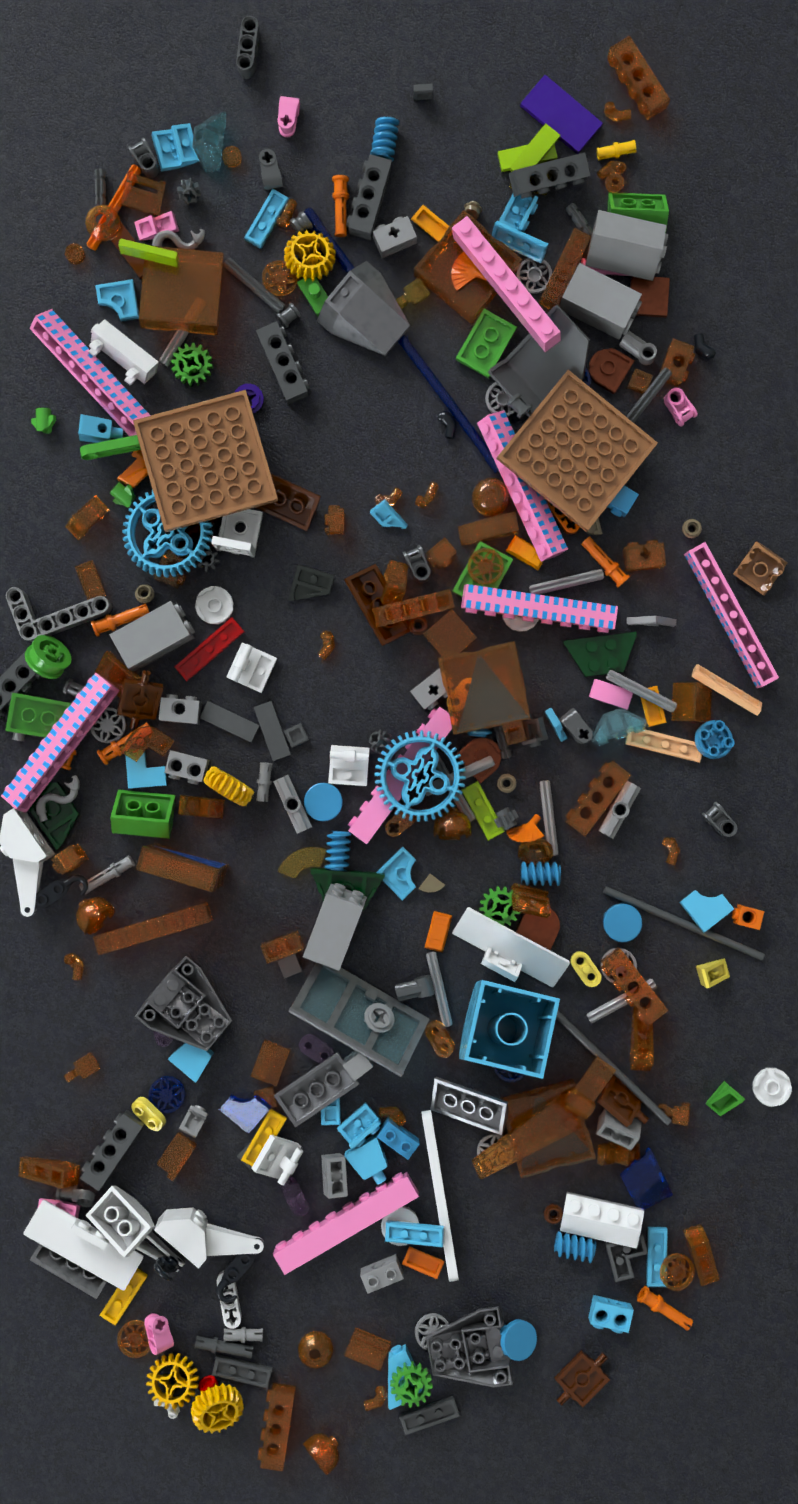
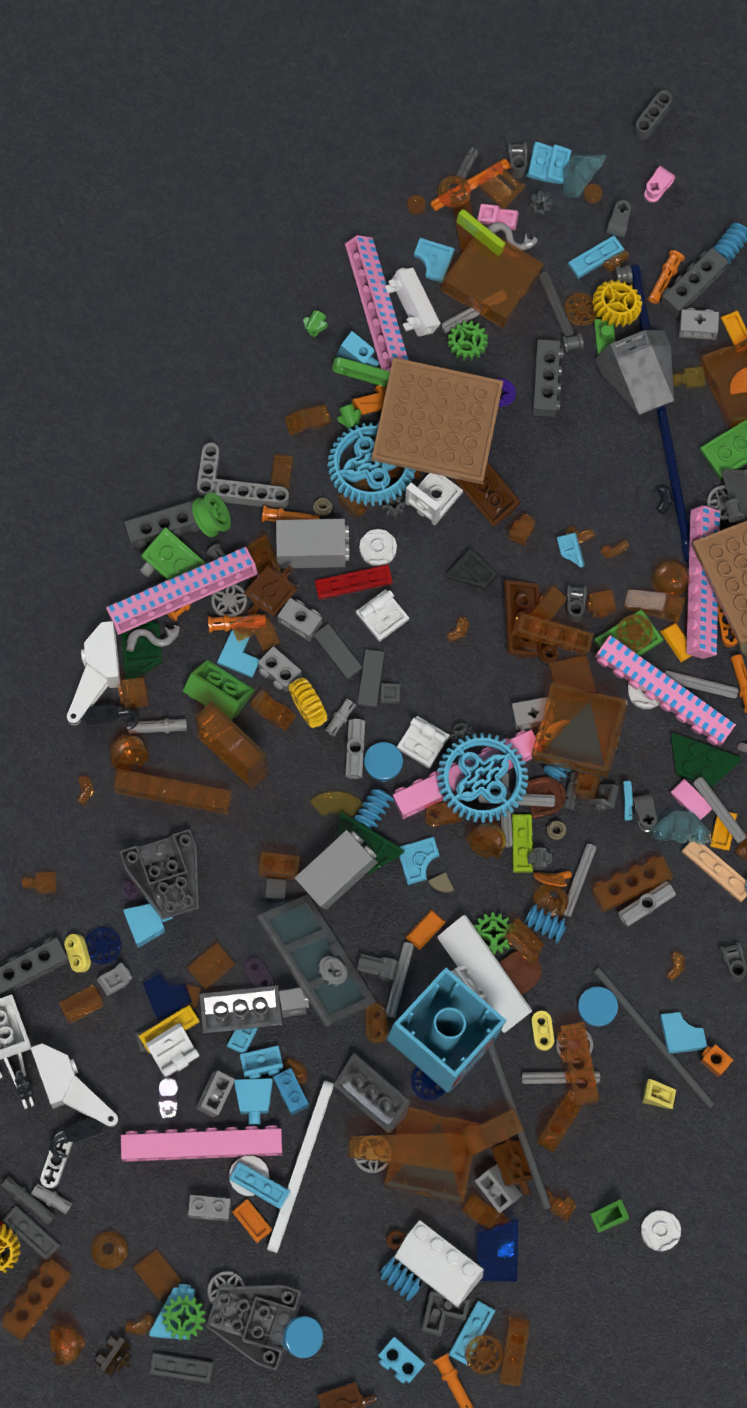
camera: 30 degrees right, 15 degrees down
(372, 1439) = (116, 1358): none -> dark brown hips

